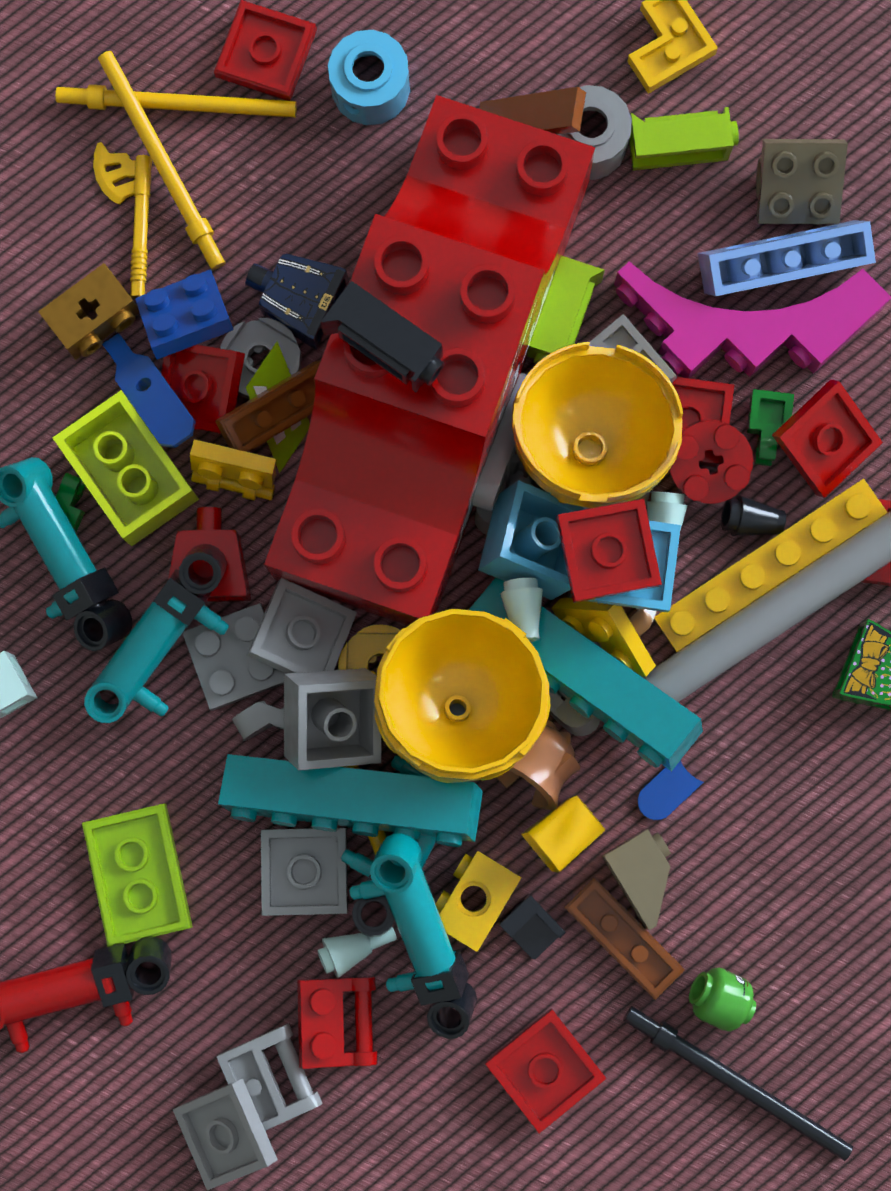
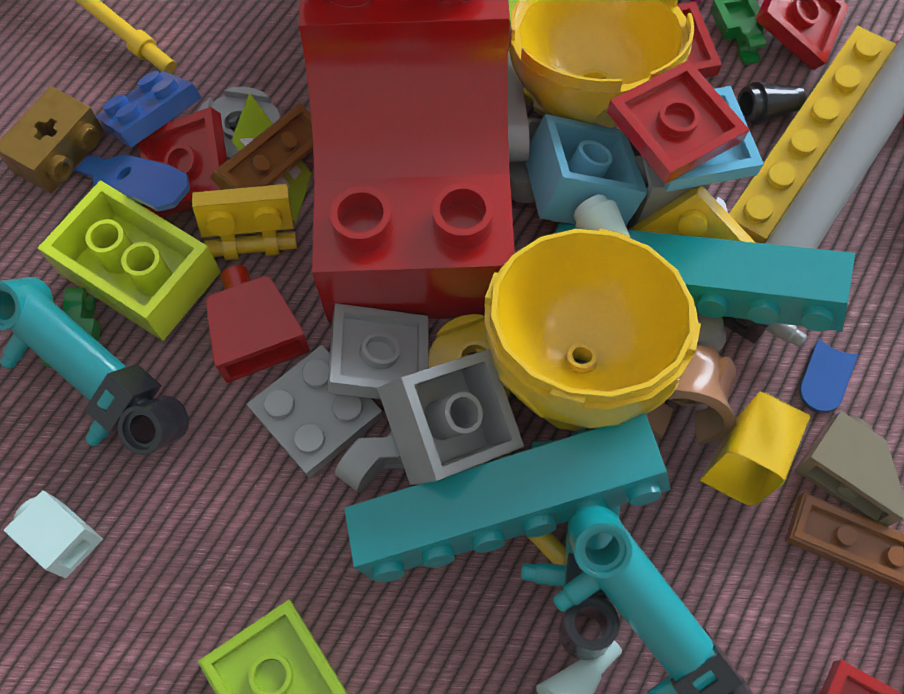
camera: 25 degrees left, 15 degrees down
(140, 188) = (71, 30): yellow piece -> none
(155, 635) = (214, 408): teal piece -> none
(298, 294) = (258, 57): dark blue torso -> none
(303, 872) = (483, 614): light grey plate -> none
(498, 884) = (709, 541): yellow brick -> none
(531, 927) = (766, 571): black panel -> none
(731, 474) = (731, 48): red plate -> none

